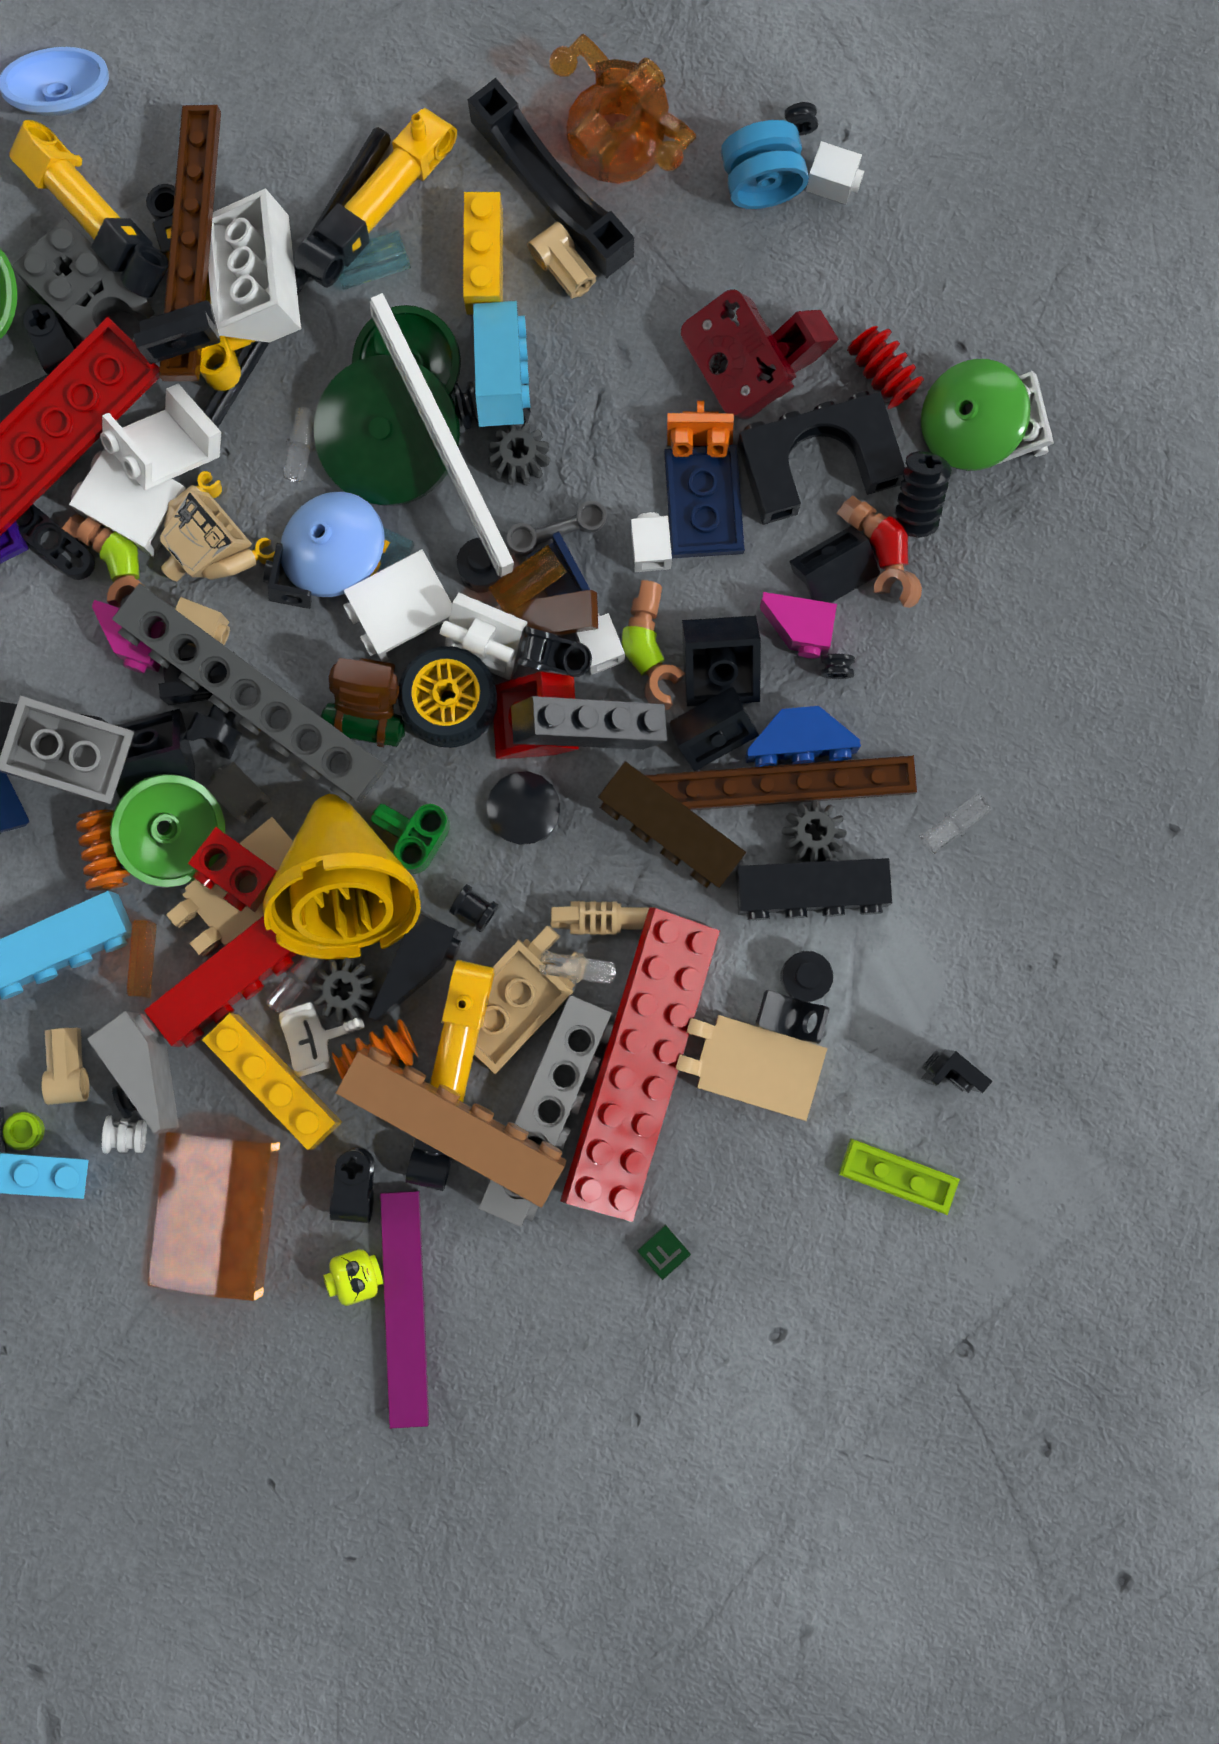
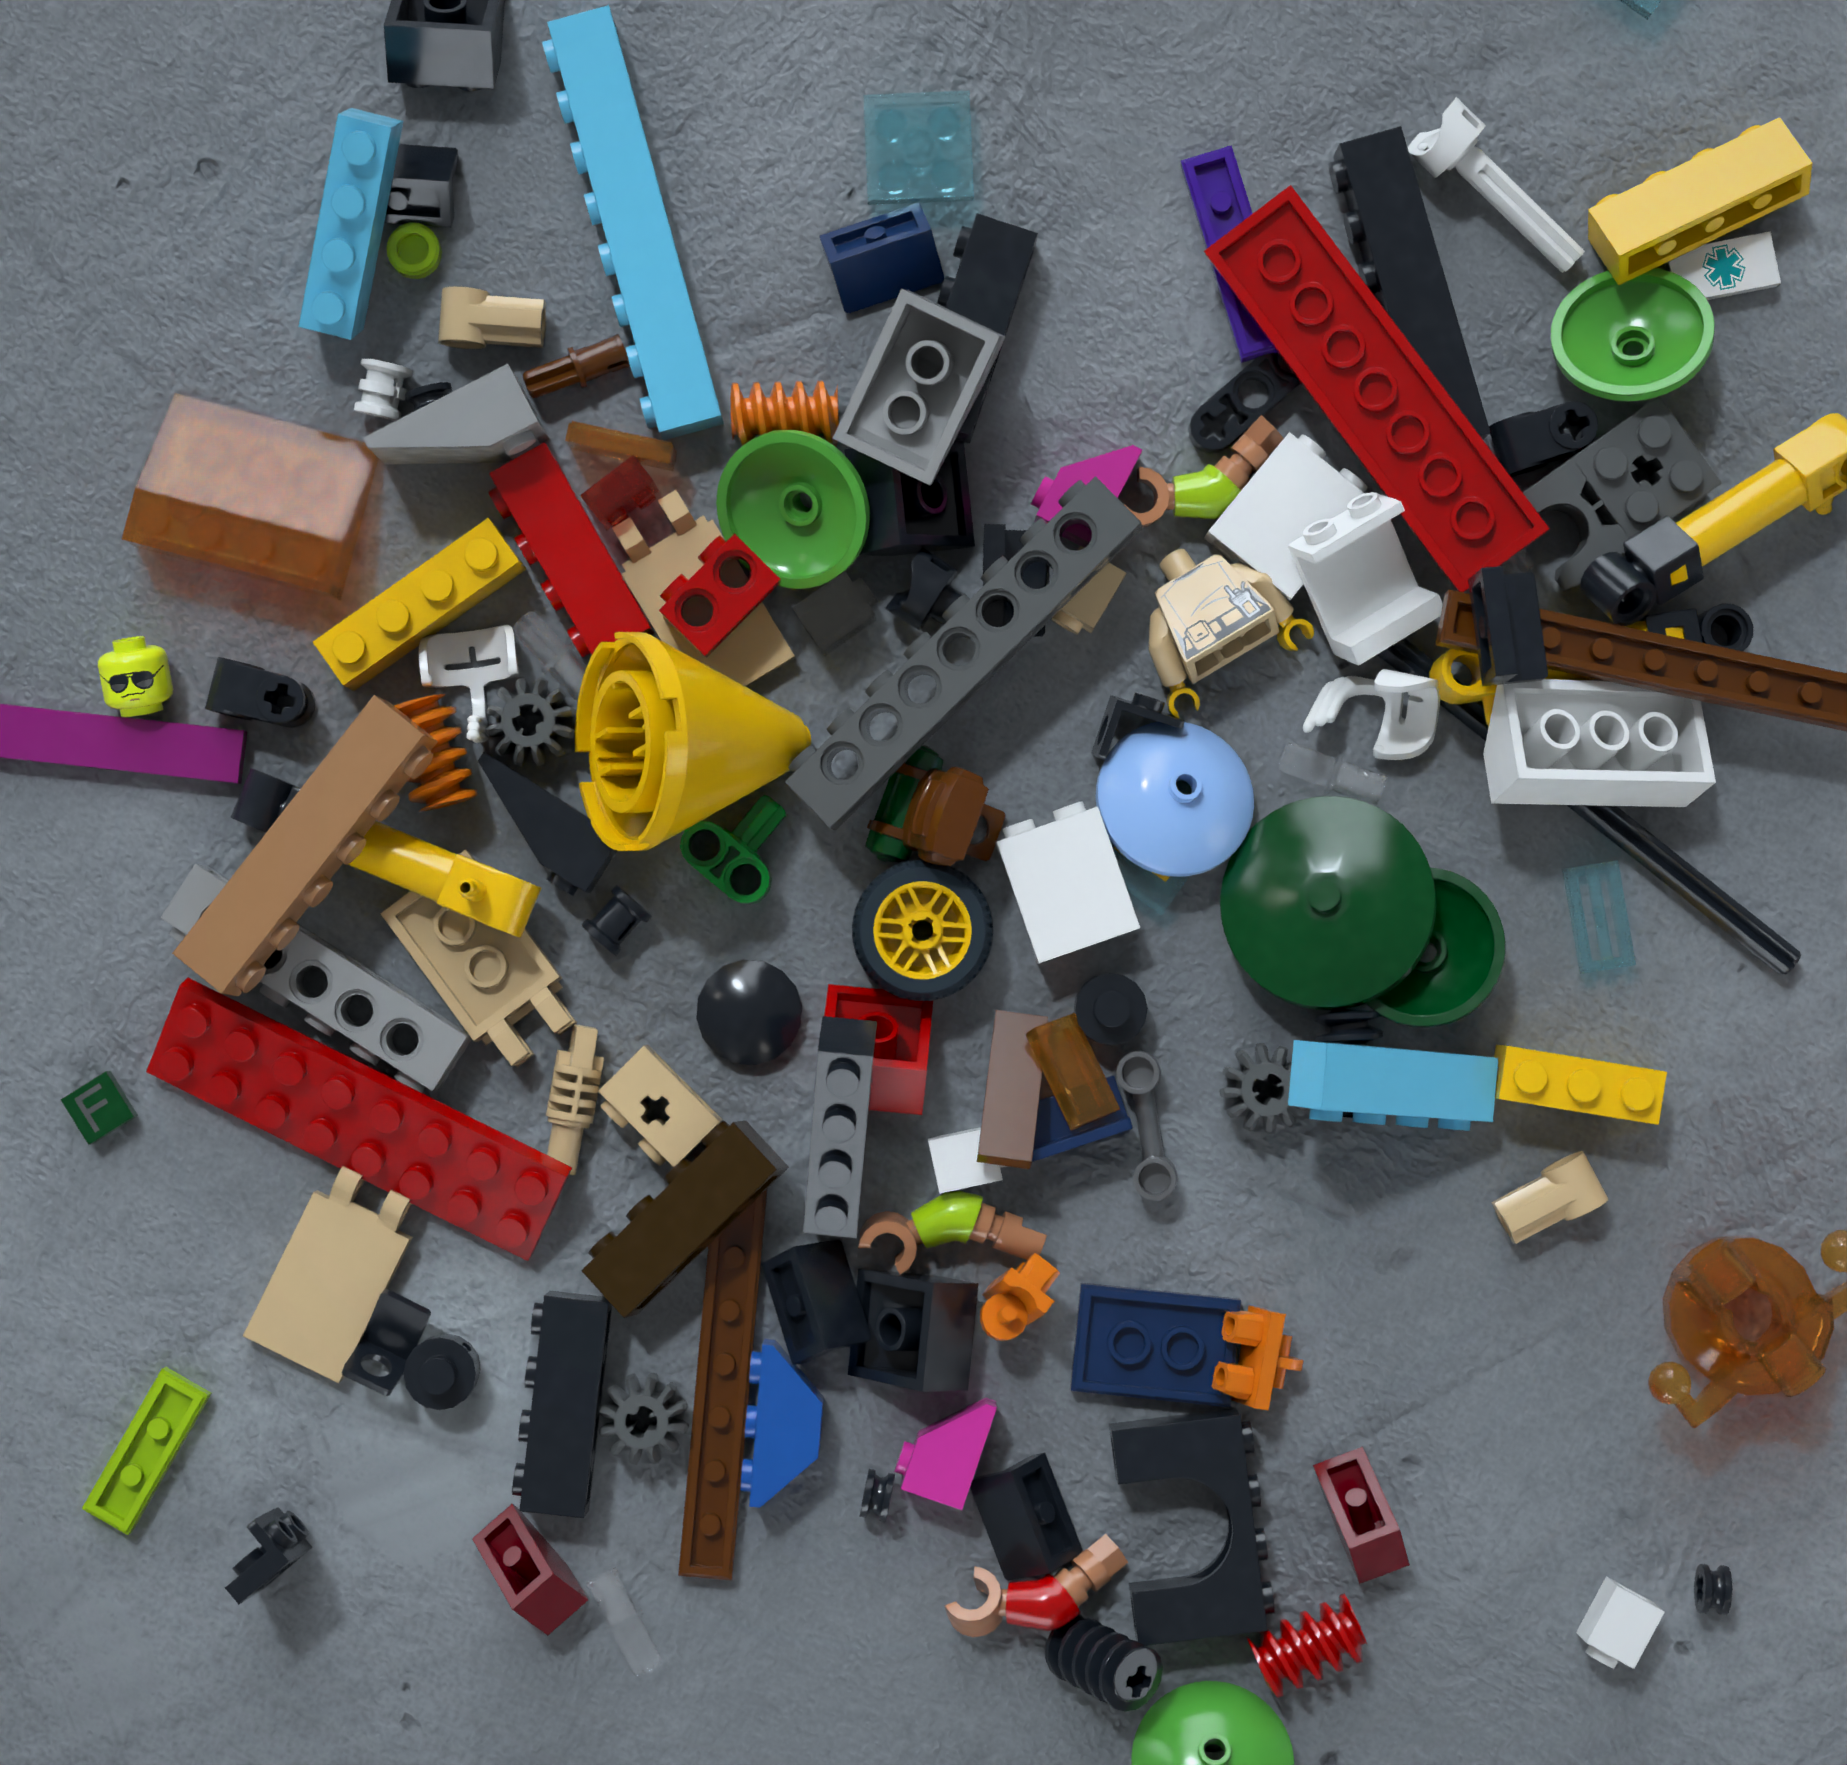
camera: 95 degrees right, 5 degrees up
(88, 996) = (577, 367): none -> reddish brown axle
(173, 953) = (620, 493): none -> clear red piece
(269, 408) = (1398, 736): none -> white helmet
(346, 228) = (1646, 895): yellow piece -> none
(441, 435) = (1292, 982): white tile -> none
(486, 633) = (998, 999): white plate -> none
(550, 652) = (950, 1093): black piece -> none
(577, 968) = (501, 1054): clear axle -> none
(589, 225) = (1635, 1221): black arch -> none
(601, 835) = (652, 1077): none -> tan brick
(651, 542) = (1103, 1258): white brick -> none
(686, 589) = (1017, 1298): none -> orange hips
(747, 348) = (1363, 1448): dark red axle -> none
(764, 164) = (1640, 1521): dark azure wheel -> none
(932, 893) = (529, 1571): none -> dark red slope

